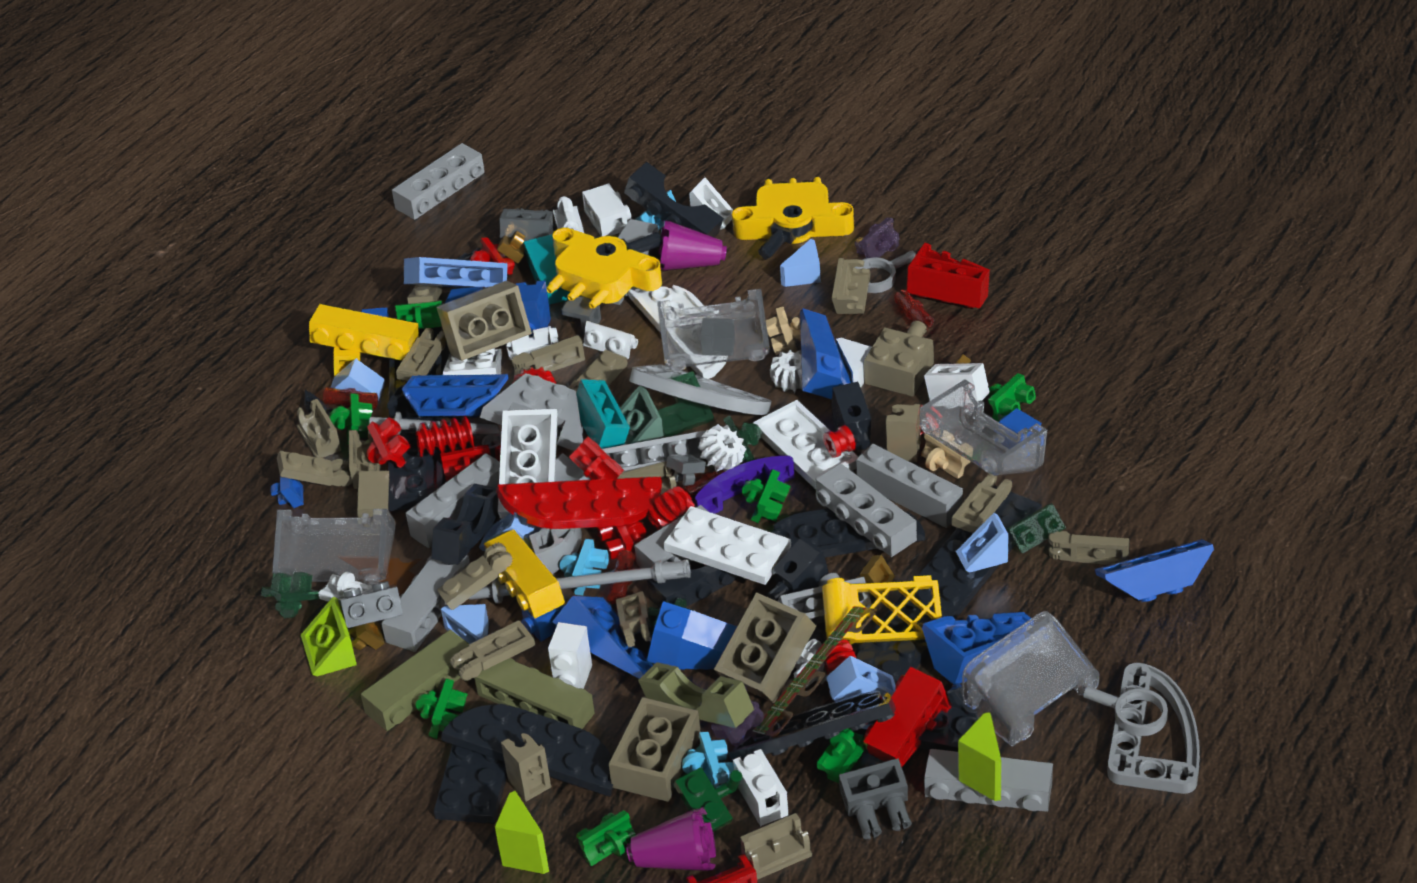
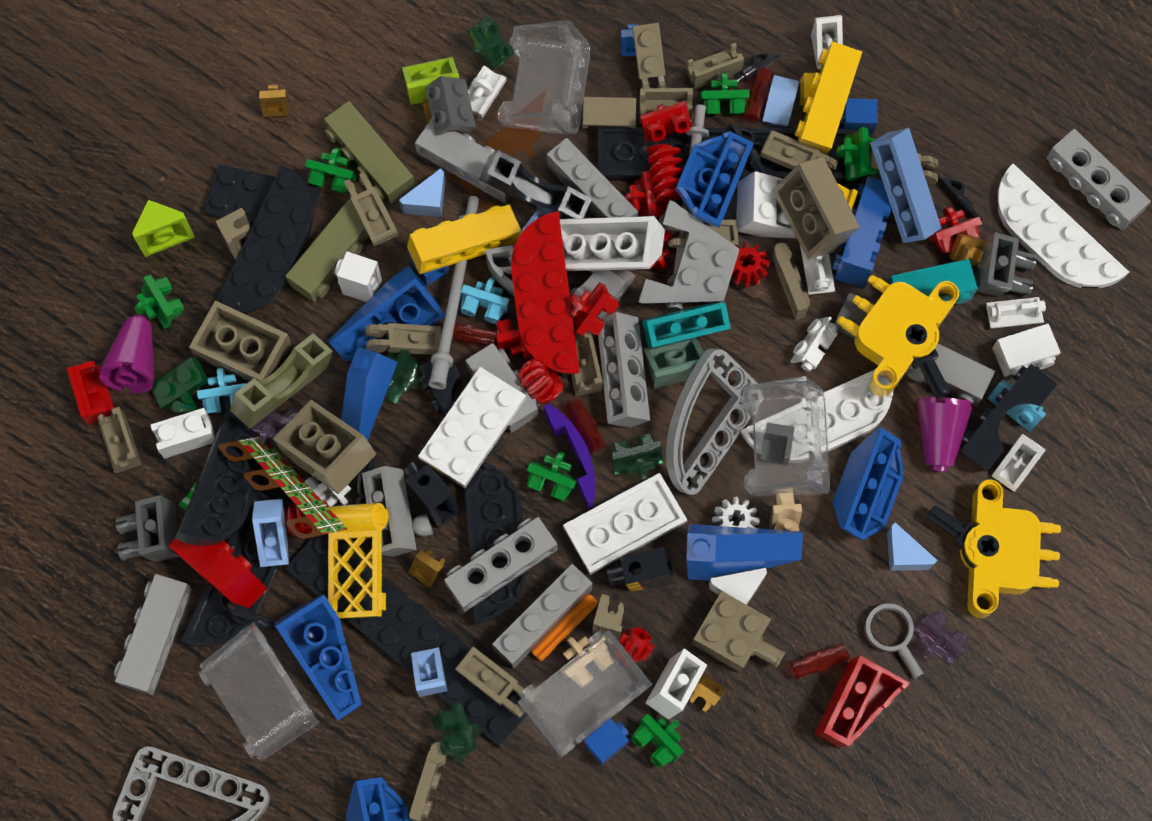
camera: 90 degrees right, 30 degrees up
(296, 355) = (824, 32): none -> white slope
(355, 770) = (274, 102): none -> pearl gold tile
(475, 576) = (459, 193): dark tan hinge -> none
(482, 213) = (1053, 234): none -> white plate
(605, 368) = (762, 329): dark tan hinge -> none
(685, 413) = (705, 411): clear green plate -> none
(685, 467) = (589, 397): dark grey tile -> none
(721, 448) = (604, 423): white gear -> none
(726, 285) = (869, 485): none -> blue wedge
(839, 441) = (603, 551): red wheel -> none
(850, 287) = (858, 596): dark tan hinge -> none
(980, 758) = (134, 619): lime slope -> none
(1131, 695) = (215, 767): light grey piece -> none

